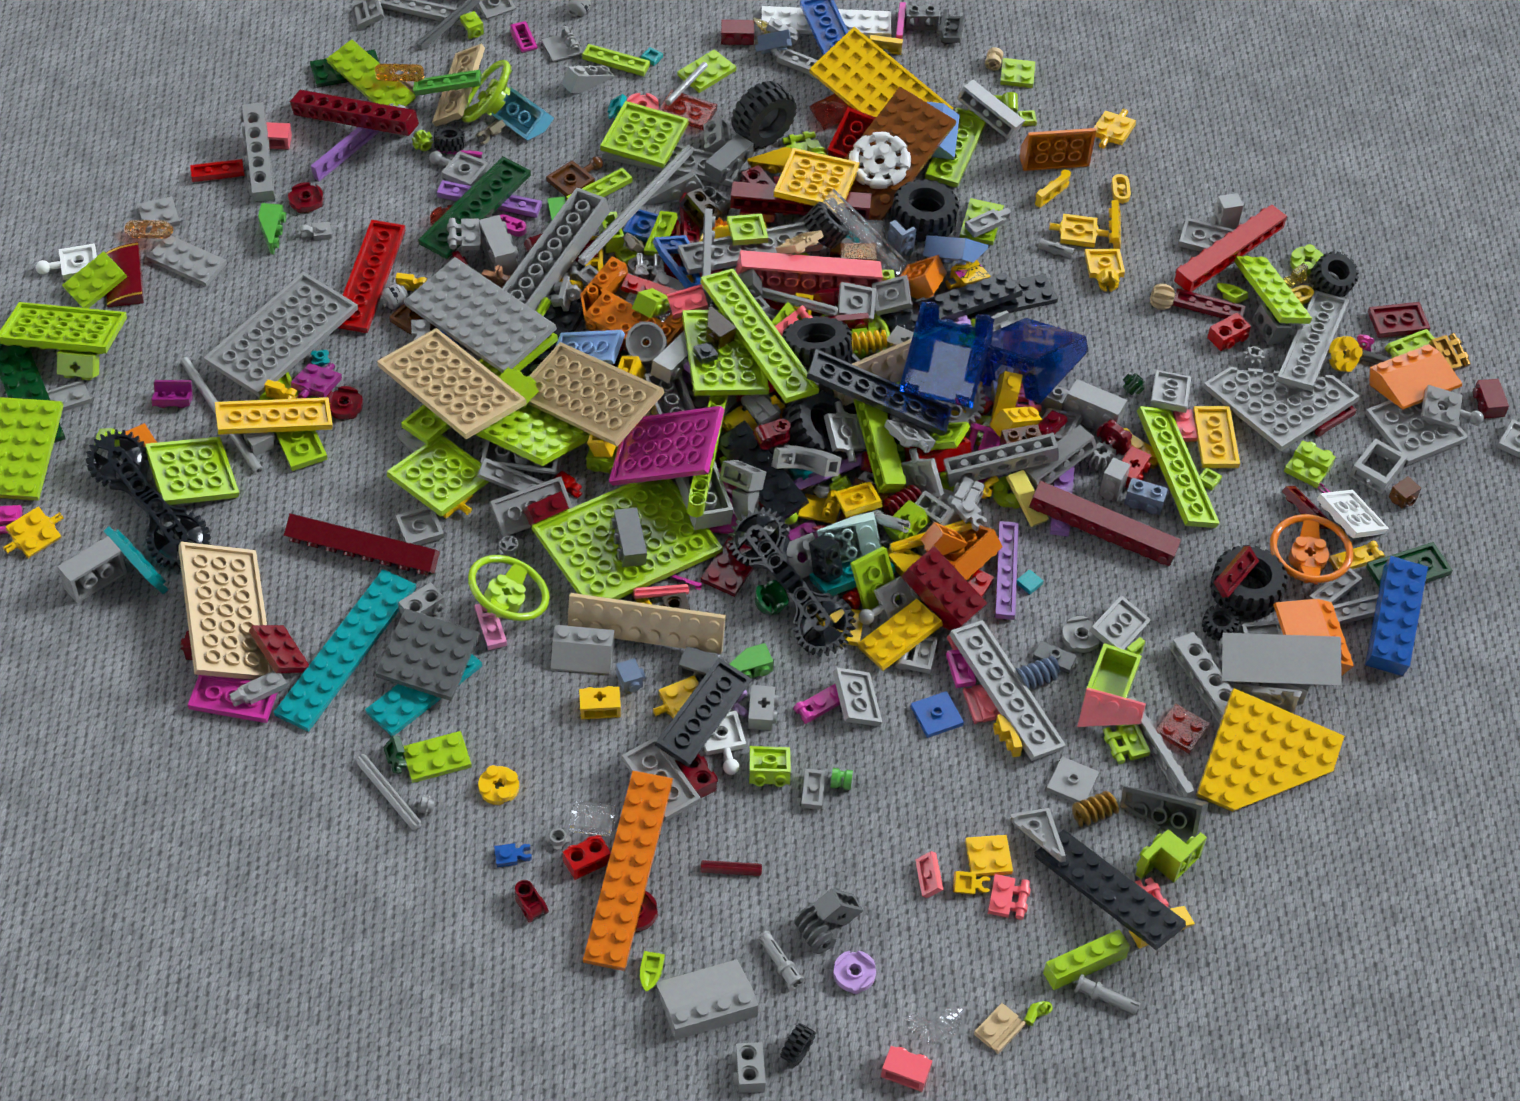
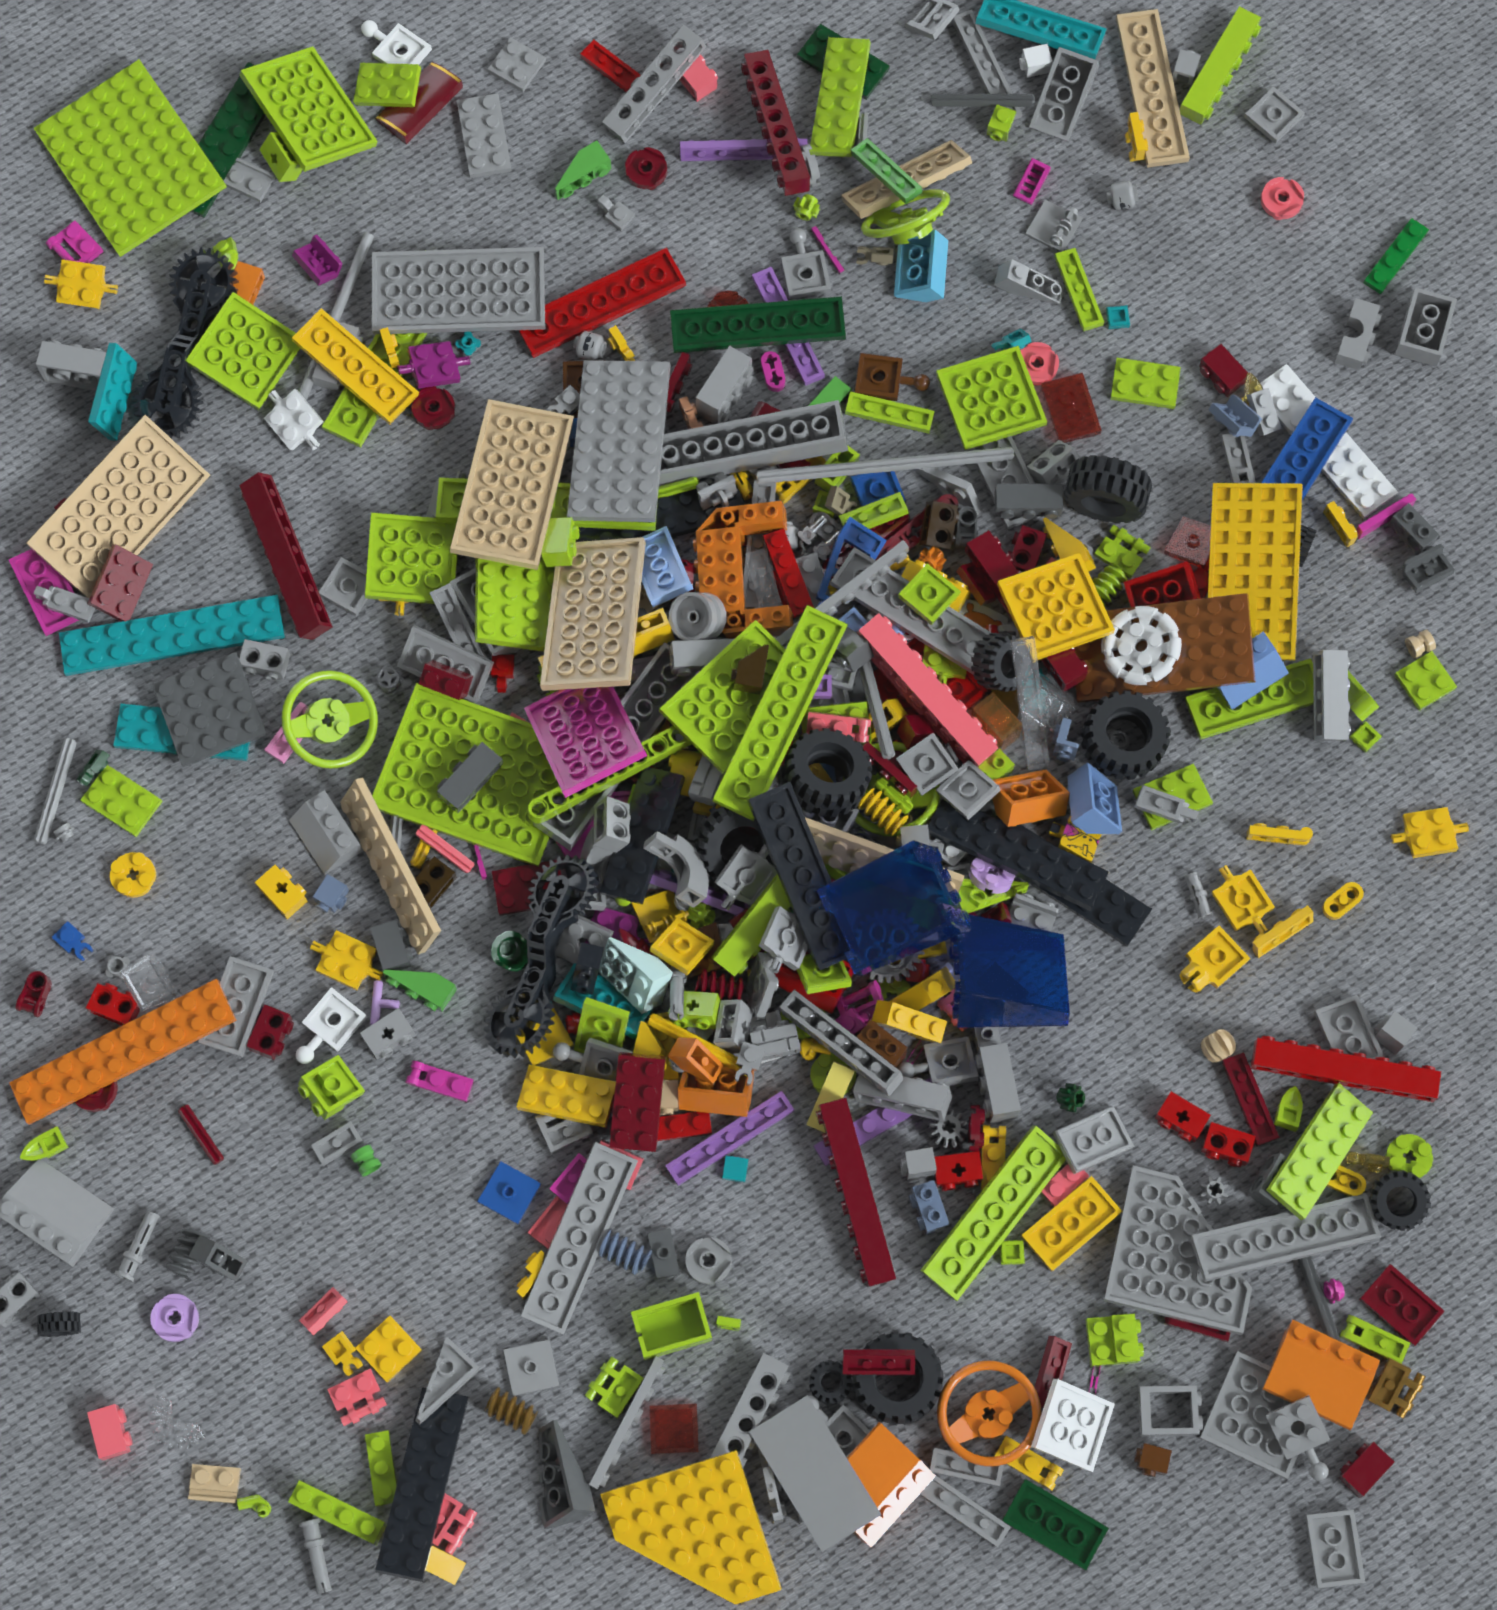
camera: 55 degrees right, 20 degrees up
(143, 224) = (478, 71): clear orange beam -> none
(268, 479) = (293, 419): none -> white plate
(411, 68) = (858, 109): clear orange beam -> none
(449, 139) = (831, 220): black tyre -> none
(470, 234) = (711, 352): light grey plate -> none
(651, 303) = (756, 581): lime brick -> none
(686, 83) = (1101, 380): light grey bar -> none
(687, 299) = (777, 614): coral plate -> none
(703, 712) = (328, 990): black plate -> none
(705, 352) = (714, 682): black plate -> none
(771, 435) = (677, 812): dark red piece -> none
(799, 242) = (949, 658): tan plate -> none
(857, 697) = (464, 1109): light grey plate -> none
(1052, 423) = (937, 1055): dark red plate -> none
(1057, 149) = (1329, 802): orange slope -> none
(1073, 915) = (381, 1467): none -> lime plate
(1109, 709) = (627, 1350): coral wing -> none
(1120, 624) = (743, 1290): light grey plate -> none
(1170, 855) = (504, 1514): lime bracket -> none
(1192, 341) = (1194, 1118): none -> red brick
(1352, 356) = (1288, 1291): yellow plate -> none
(1396, 616) = (970, 1550): blue brick -> none

